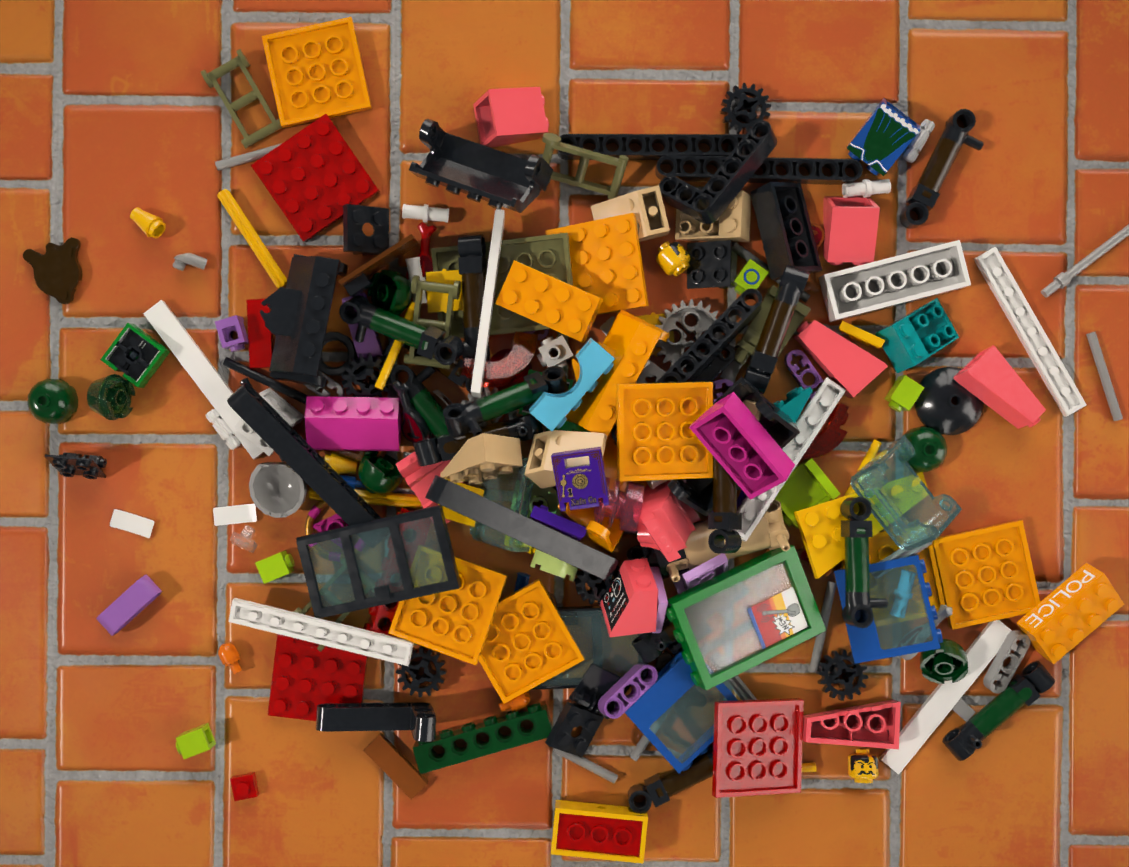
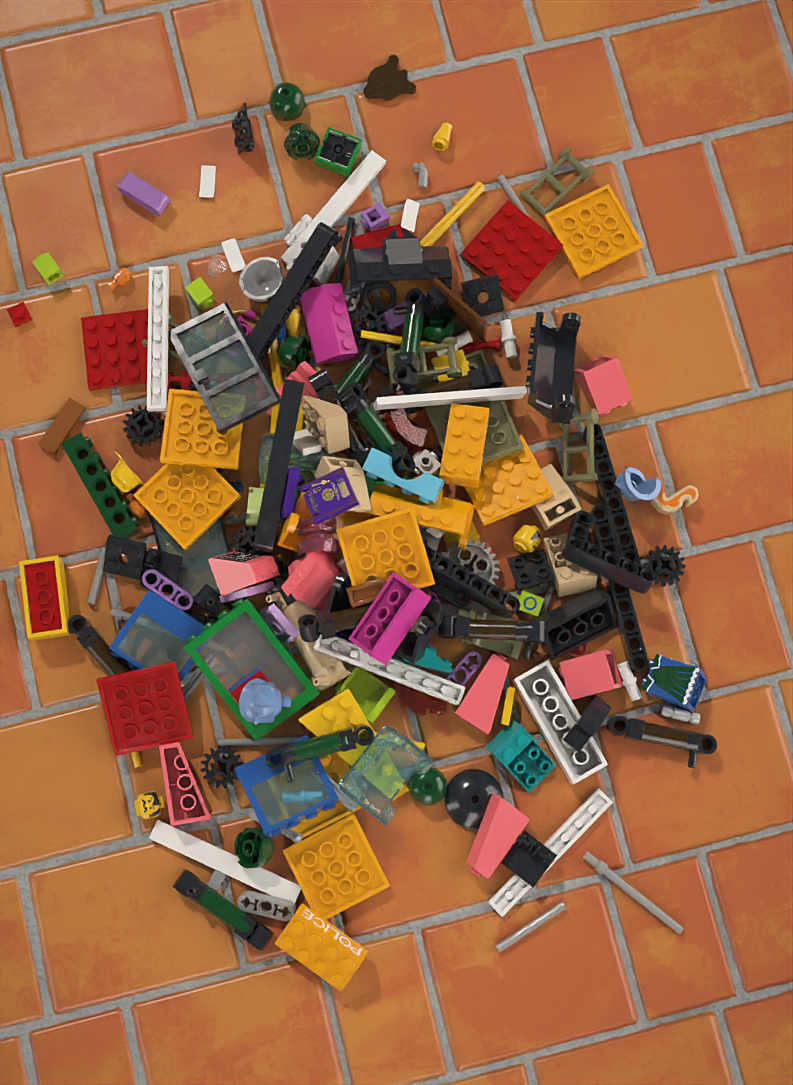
camera: 75 degrees right, 10 degrees down
(238, 289) = (409, 215): none -> white sticker
(292, 310) = (403, 251): none -> clear piece
(412, 716) = (104, 425): black beam -> none
(413, 425) = (340, 369): black piece -> none
(479, 710) = (124, 477): none -> yellow piece
(499, 488) = (306, 442): none -> white tile
(646, 114) = (636, 487): none -> medium blue helmet
(674, 73) = (671, 504): none -> tan animal
(700, 465) = (365, 592): none -> dark orange tile
(789, 614) = (261, 701): none -> medium blue helmet
(903, 393) = (469, 756): lime brick -> none
(908, 246) = (588, 723): none -> black arch
(1034, 357) = (529, 858): none -> black hinge

